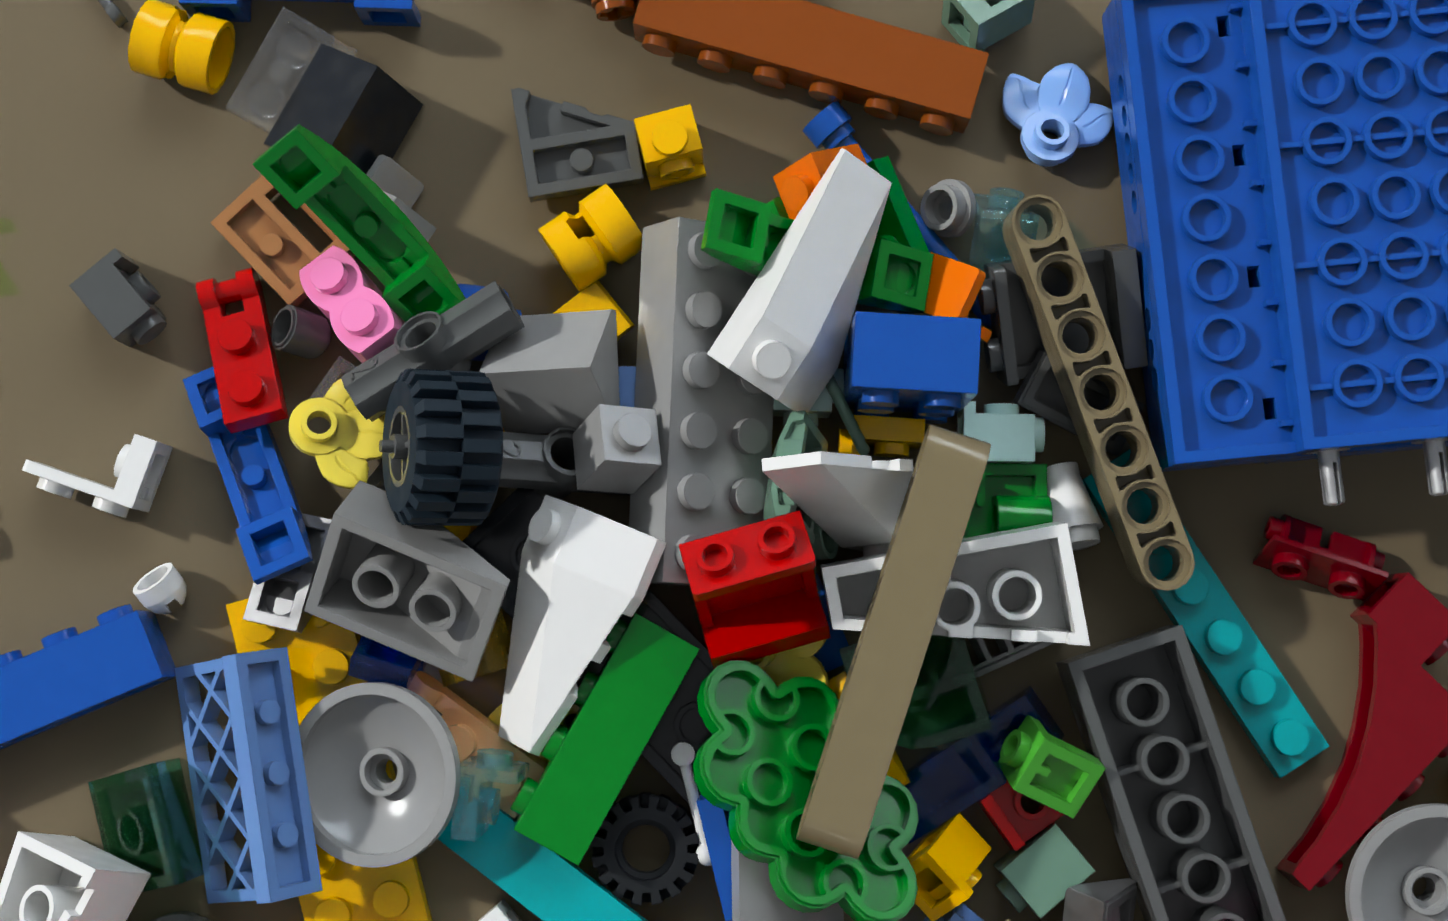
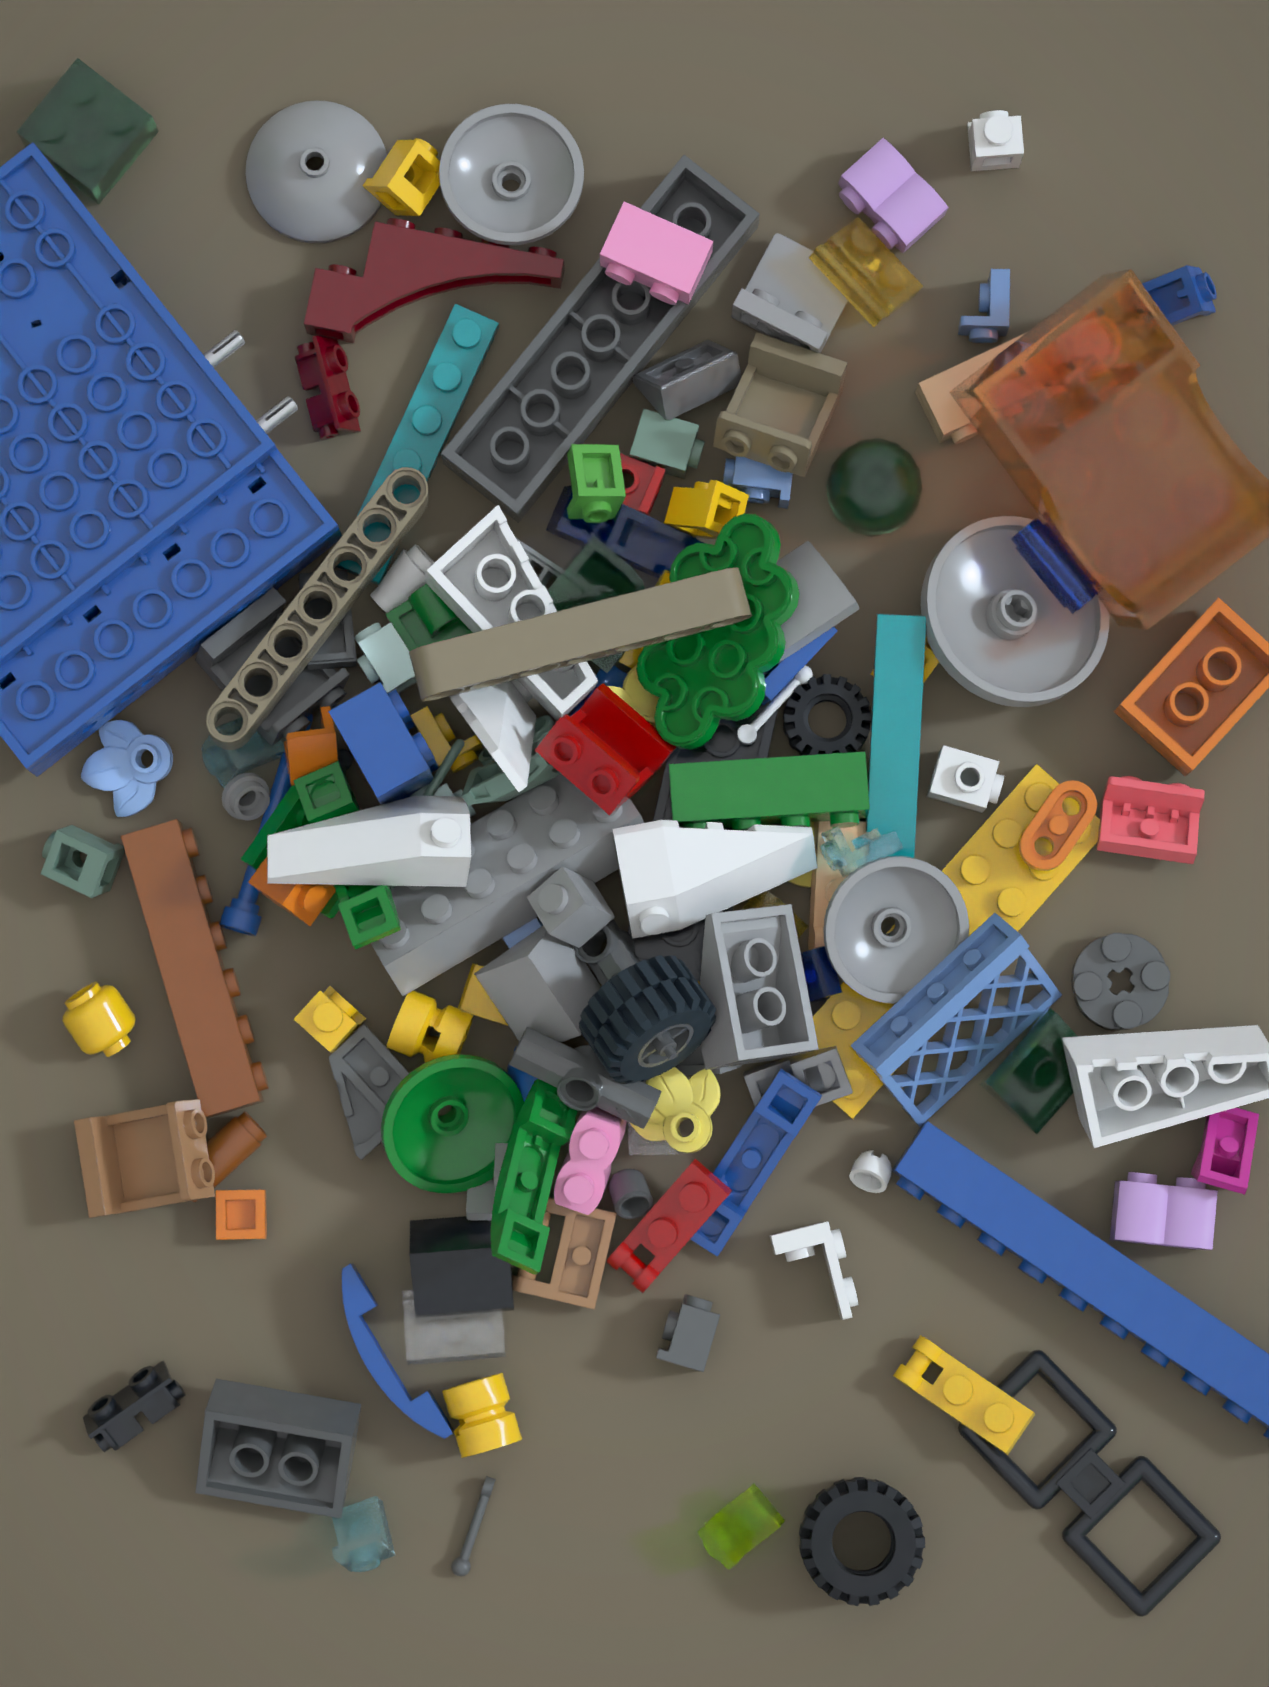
camera: 125 degrees left, 0 degrees up
(463, 190) = (454, 1148): none -> green dish

